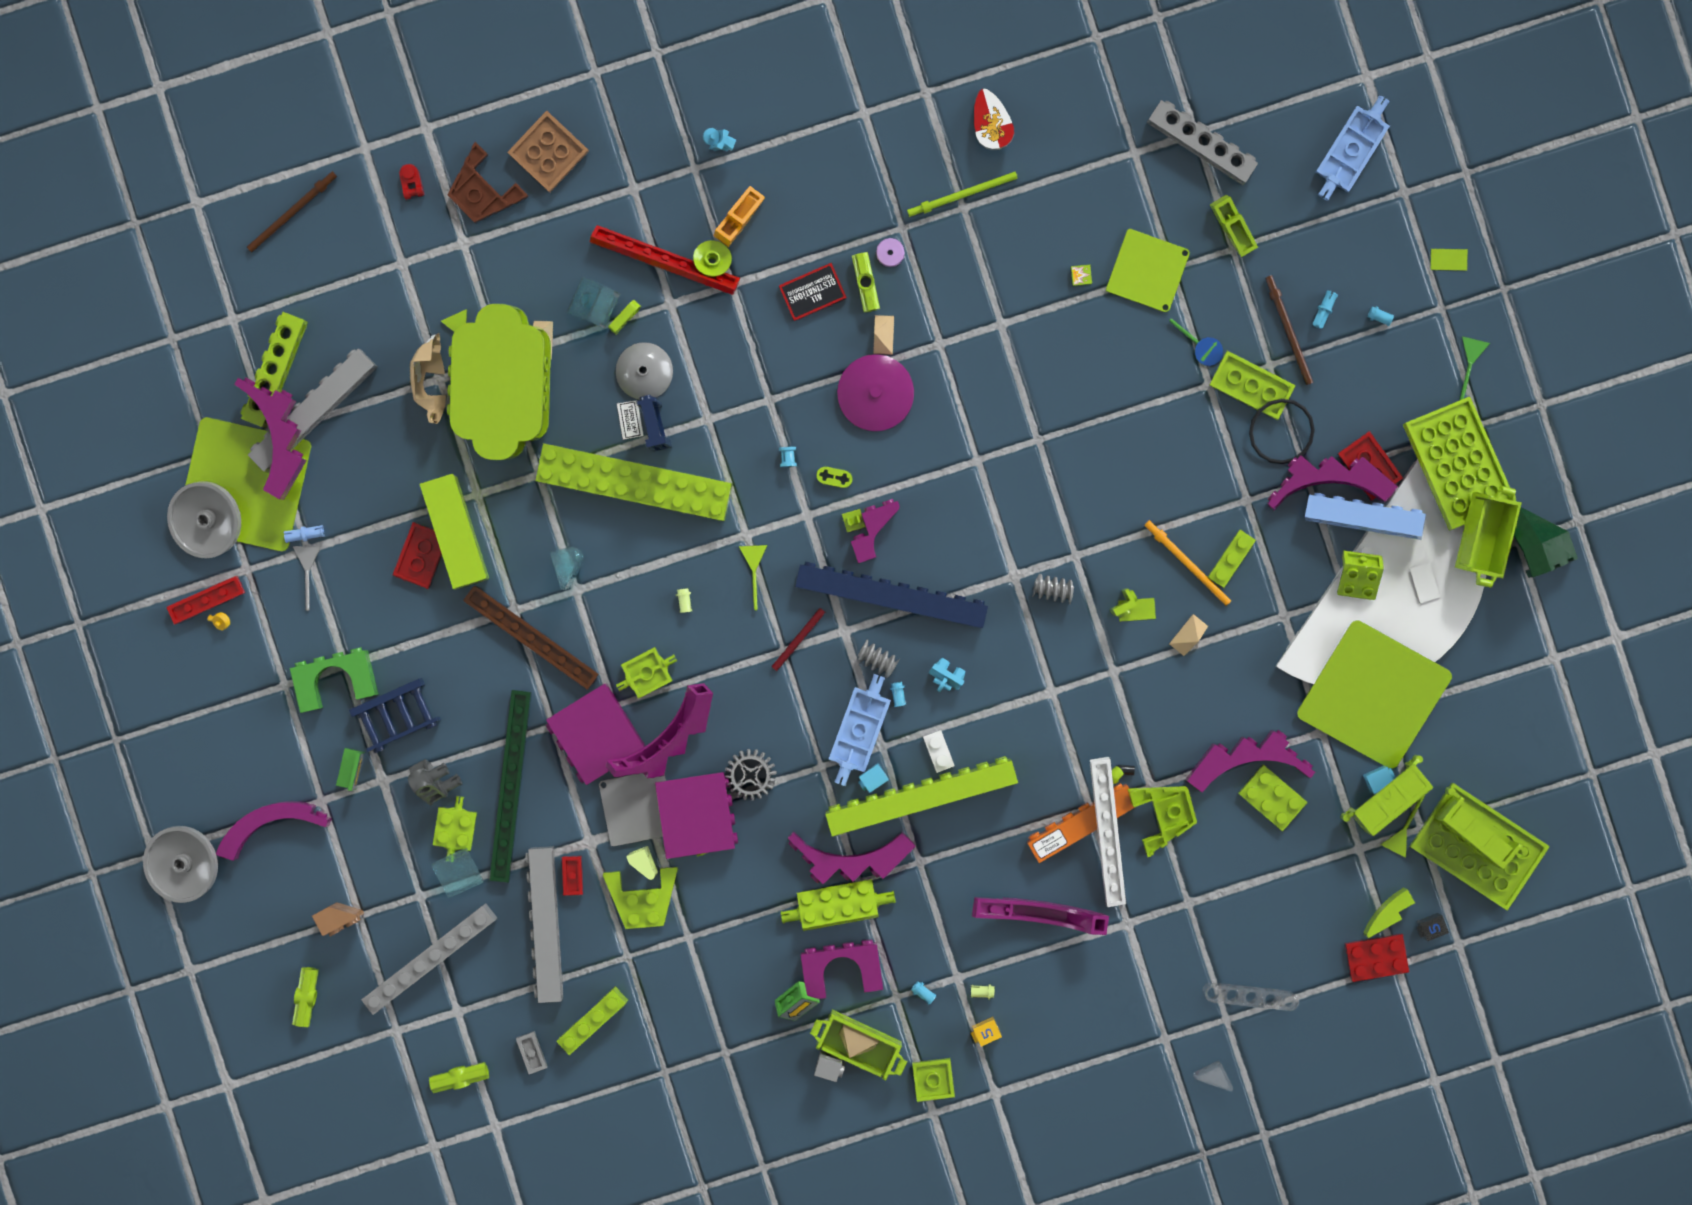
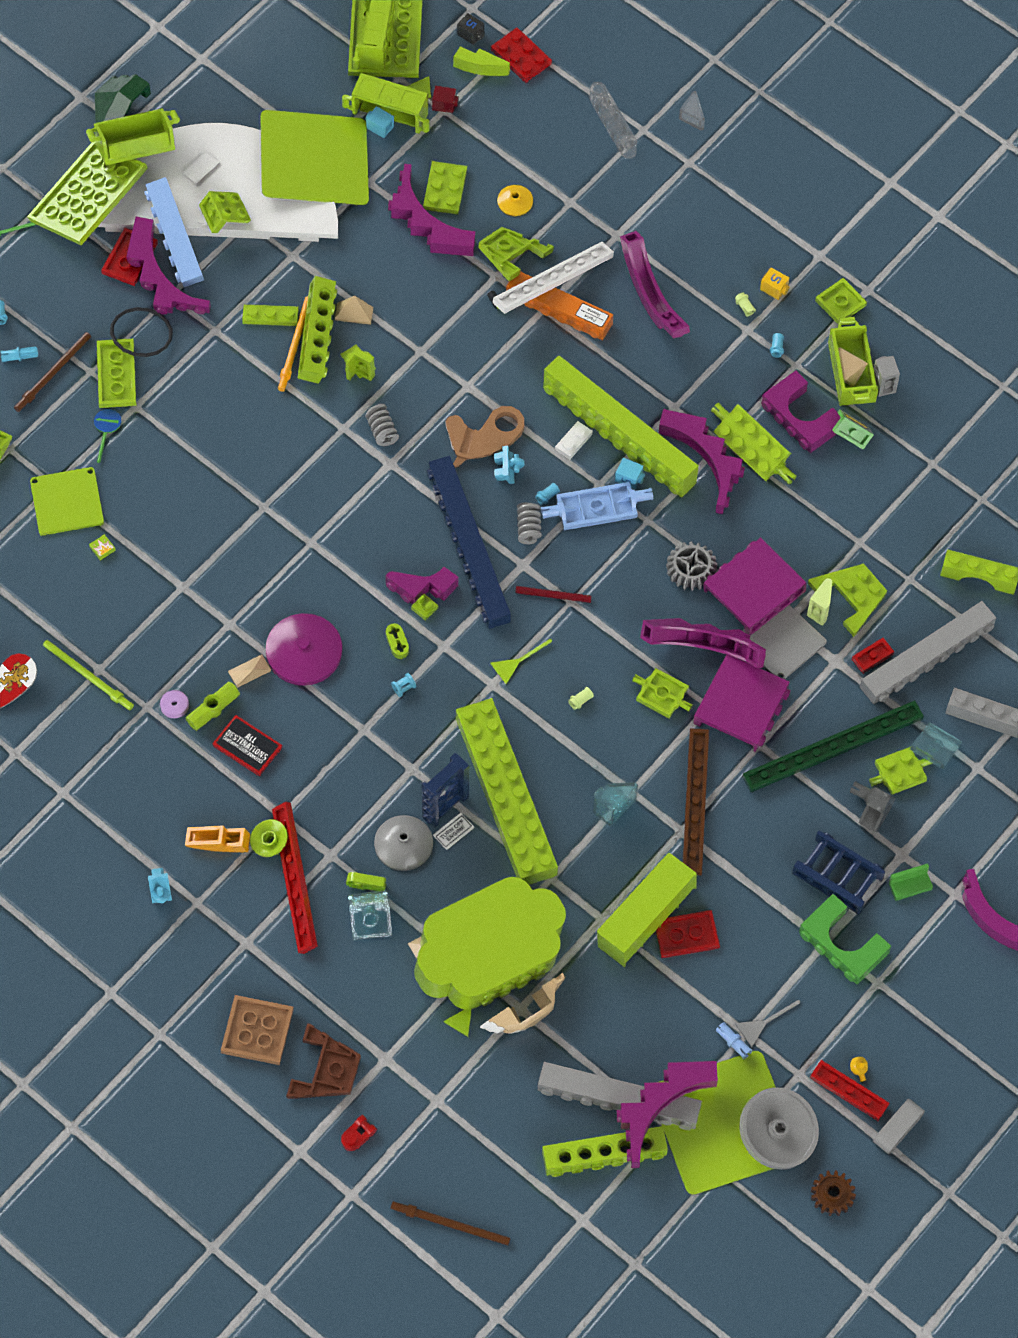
camera: 130 degrees left, 25 degrees down
(120, 526) = (838, 1184): none -> reddish brown gear
(152, 619) = (898, 1126): none -> light grey beam
(984, 662) = (485, 442): none -> medium nougat animal
(1211, 852) = (515, 206): none -> yellow dish
(1221, 624) = (308, 369): none -> lime brick
(1367, 854) = (444, 99): none -> dark red brick

